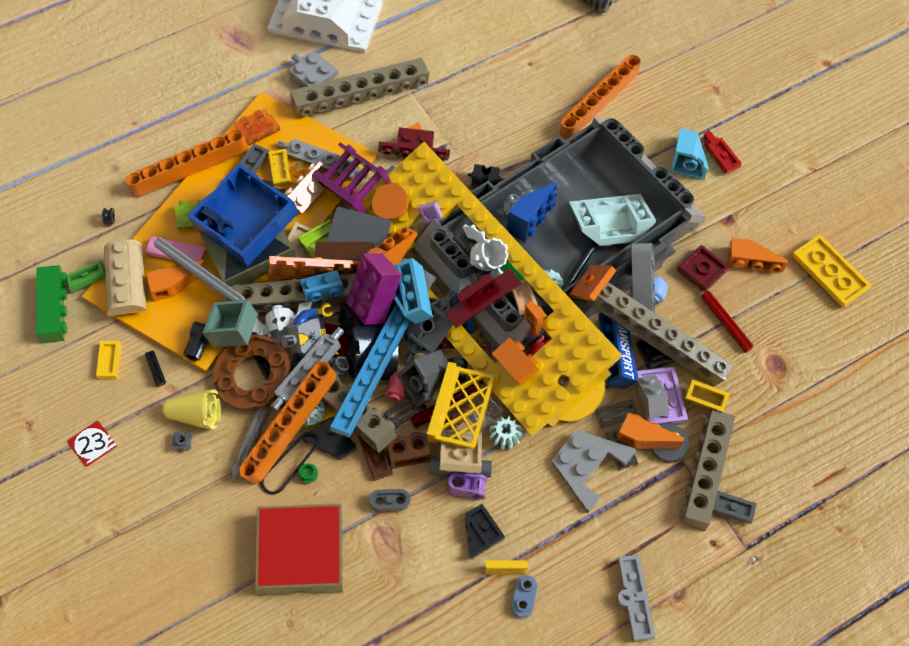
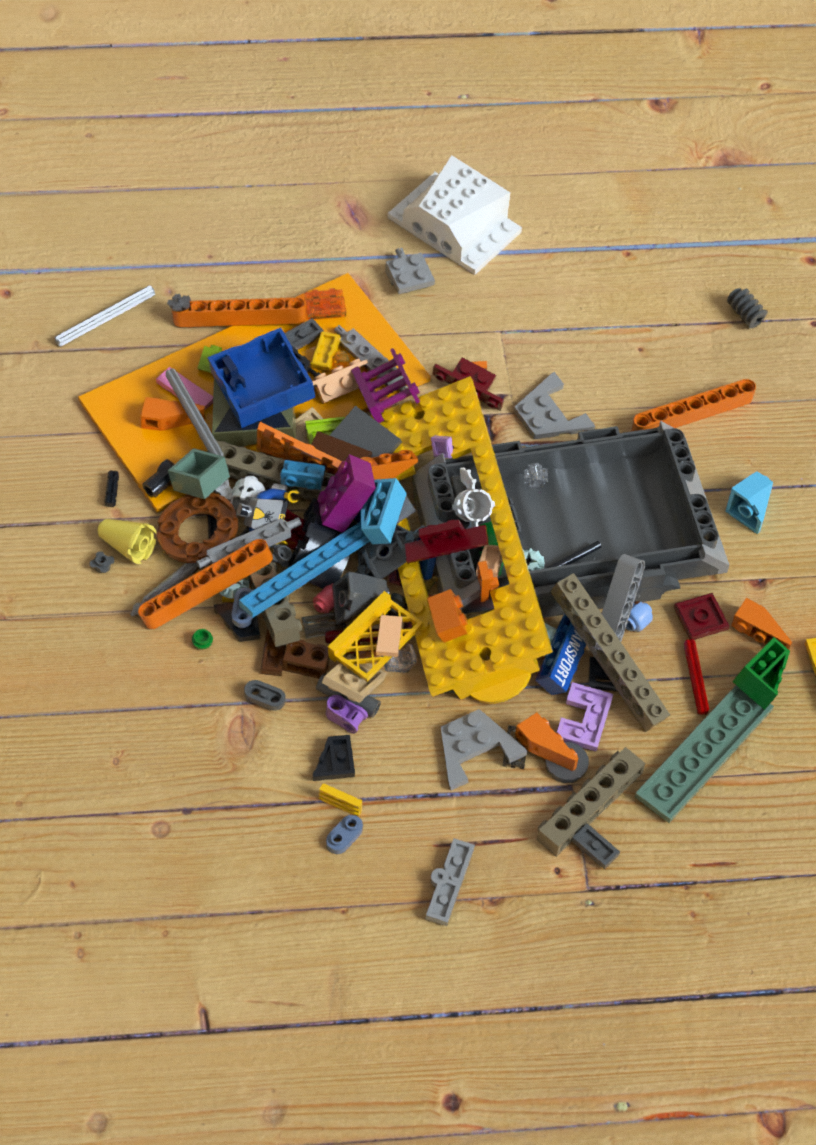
camera: 25 degrees right, 5 degrees down
(50, 304) = (46, 392): green brick -> none
(67, 213) = (104, 316): none -> axle
(85, 276) = (91, 380): bright green tile -> none
(92, 443) = (21, 531): sticker -> none
(108, 216) = (140, 333): black bush -> none
(108, 360) = (73, 463): yellow tile -> none
(124, 277) = (124, 394): tan container -> none
(131, 175) = (178, 303): none -> flat silver plant
(296, 470) = (188, 614): black piece -> none
(299, 549) = (157, 700): red tile -> none
(326, 430) = (238, 612): none -> sand blue plate
(359, 87) = (448, 305): dark tan brick -> none
(390, 201) = (409, 421): orange tile -> none
(474, 400) = (389, 636): none -> light nougat tile
(482, 174) = (525, 436): black wheel -> none
(484, 149) = (542, 415): none -> light grey wing
(505, 439) = (409, 683): light aqua gear -> none
(531, 211) = (547, 487): blue slope -> none
(592, 282) = (561, 572): orange plate -> none
(613, 218) = (626, 528): light aqua slope -> none
(632, 409) = (528, 710): clear smoke tile -> none
(652, 396) = (570, 708): light grey brick -> none
(705, 396) = (627, 733): yellow brick -> none
(721, 152) = (790, 514): red hinge -> none
(770, 384) = (702, 754): none -> sand green plate
(782, 297) = (763, 673): none -> green wedge

